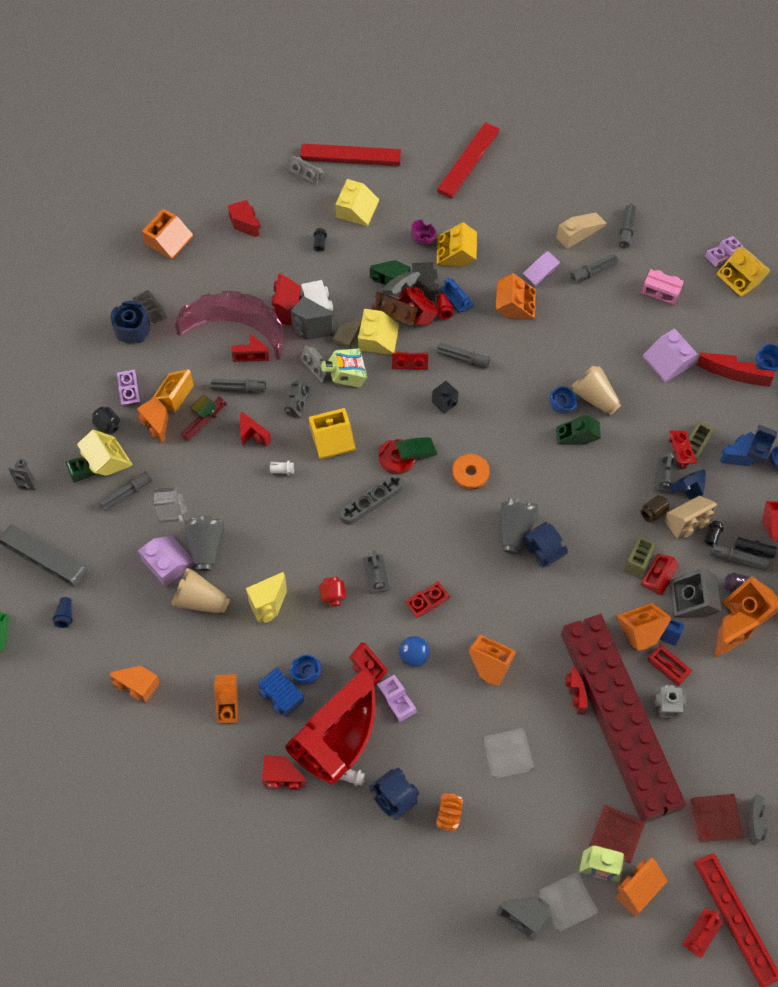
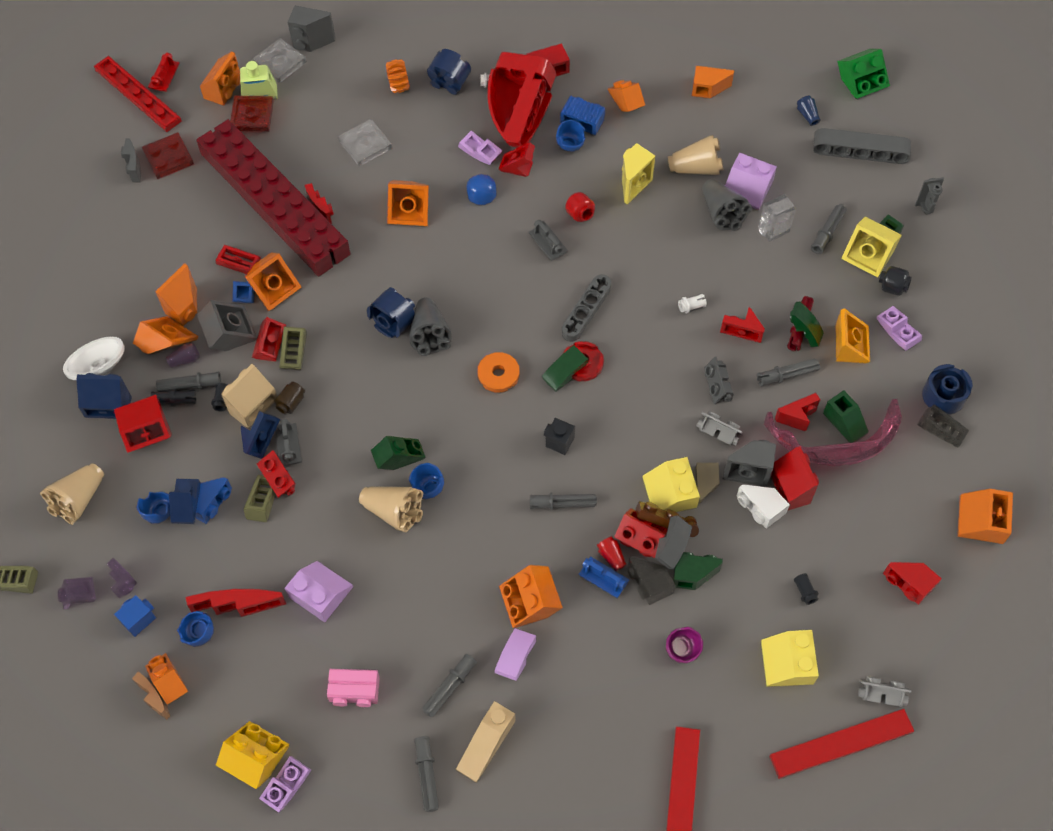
camera: 160 degrees right, 0 degrees up
(155, 417) = (848, 298): orange slope -> none
(219, 334) = (846, 417): none -> dark green slope
(331, 433) = (661, 351): yellow slope -> none
(346, 367) = (684, 425): yellowish green torso -> none
(407, 360) = (612, 474): red hinge -> none
(427, 600) = (489, 236): red slope -> none
(457, 246) = (633, 643): yellow slope -> none
(670, 702) = (229, 220): light grey brick -> none

